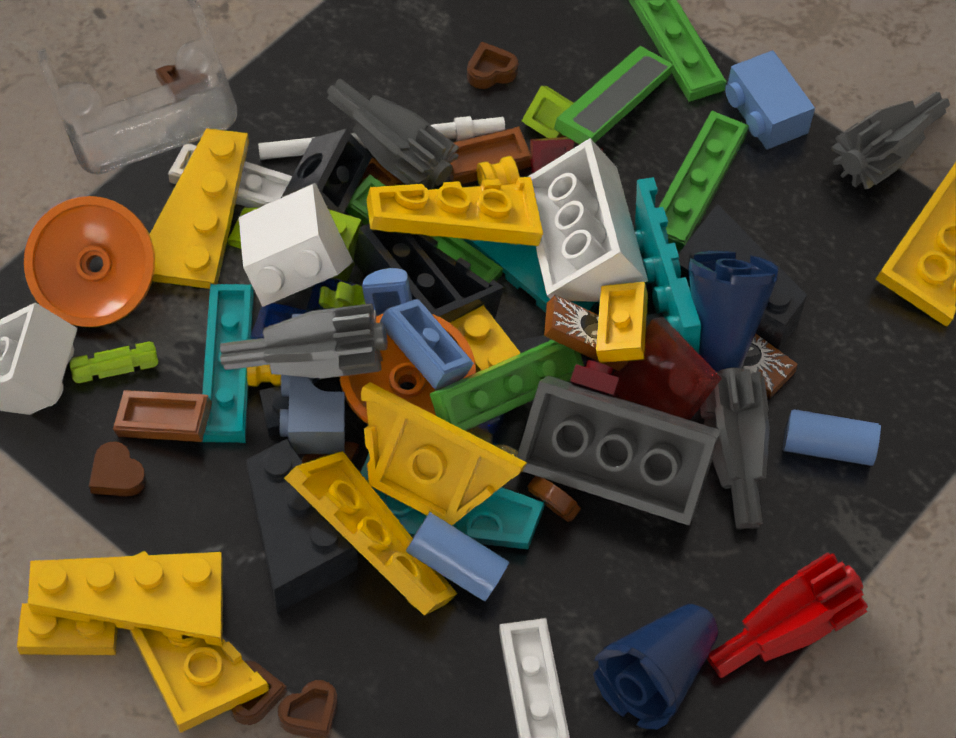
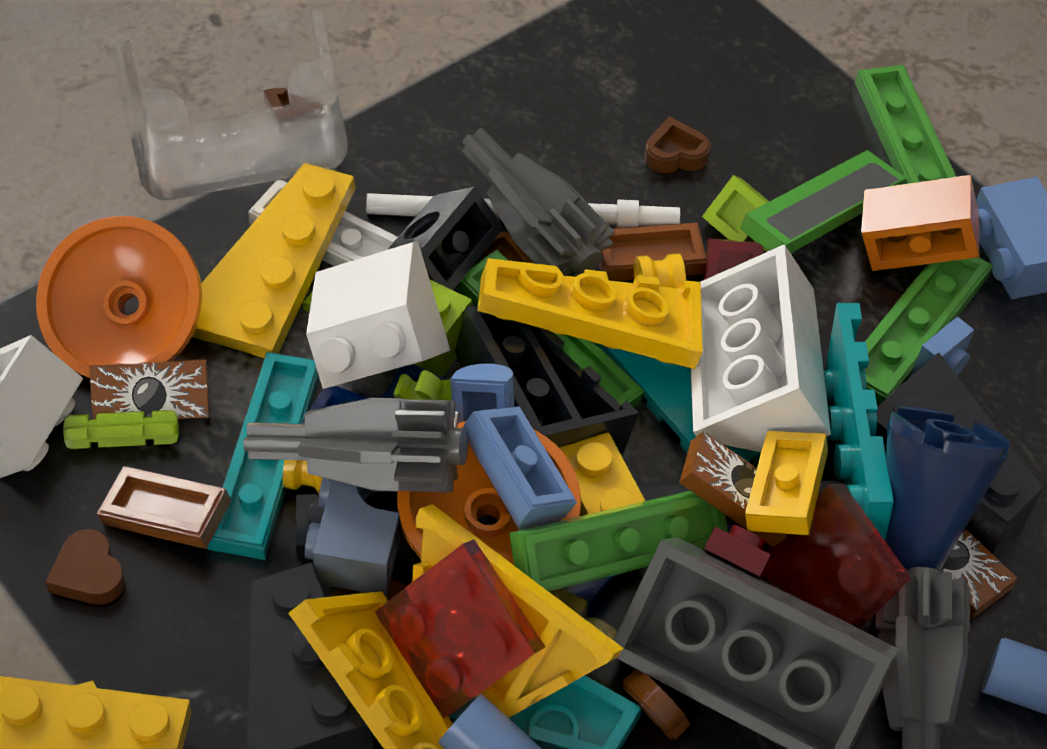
camera: 10 degrees right, 5 degrees down
(130, 326) = (151, 387): none -> tile
(406, 468) = (459, 628): none -> clear red plate
(690, 102) = (921, 223): none -> orange brick
(725, 195) = (950, 343): none -> medium blue plate

